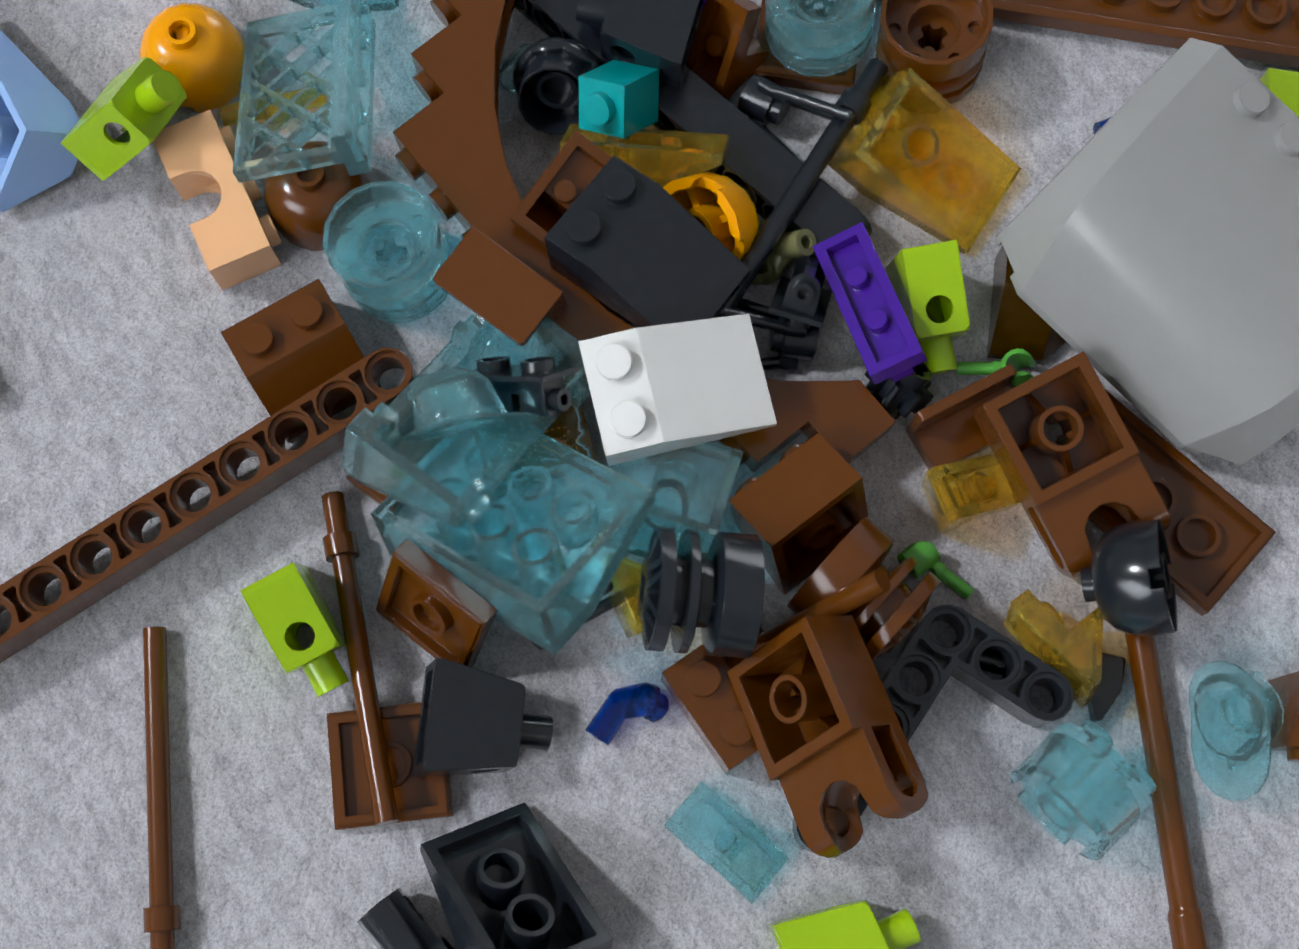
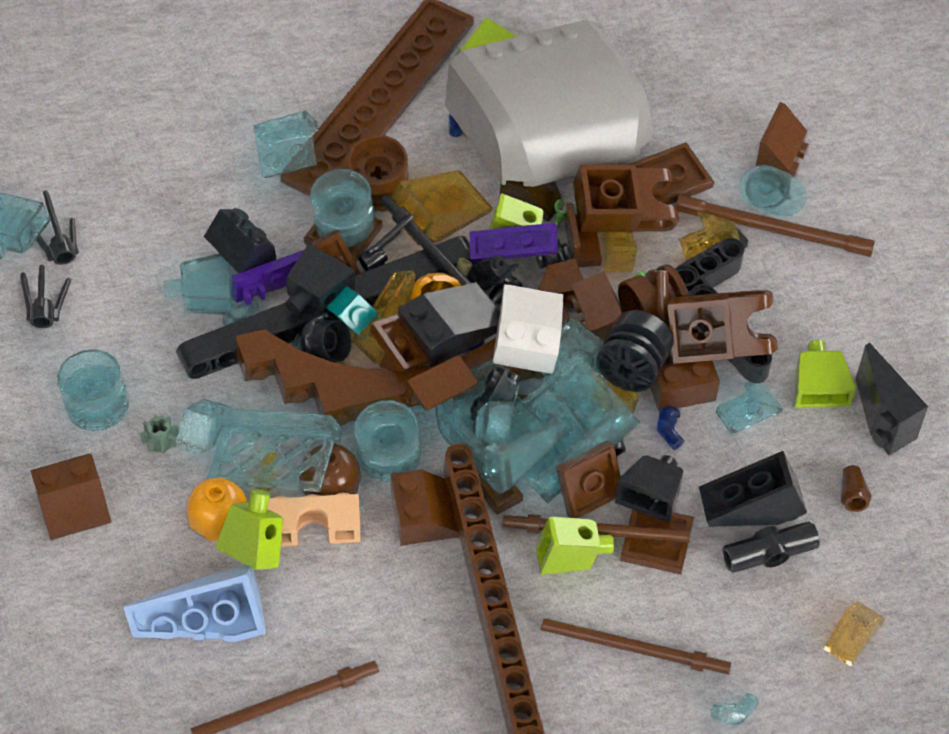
camera: 70 degrees left, 20 degrees down
(1083, 788) = (779, 253): clear light blue brick -> none
(1133, 579) = (692, 192): black cylinder -> none

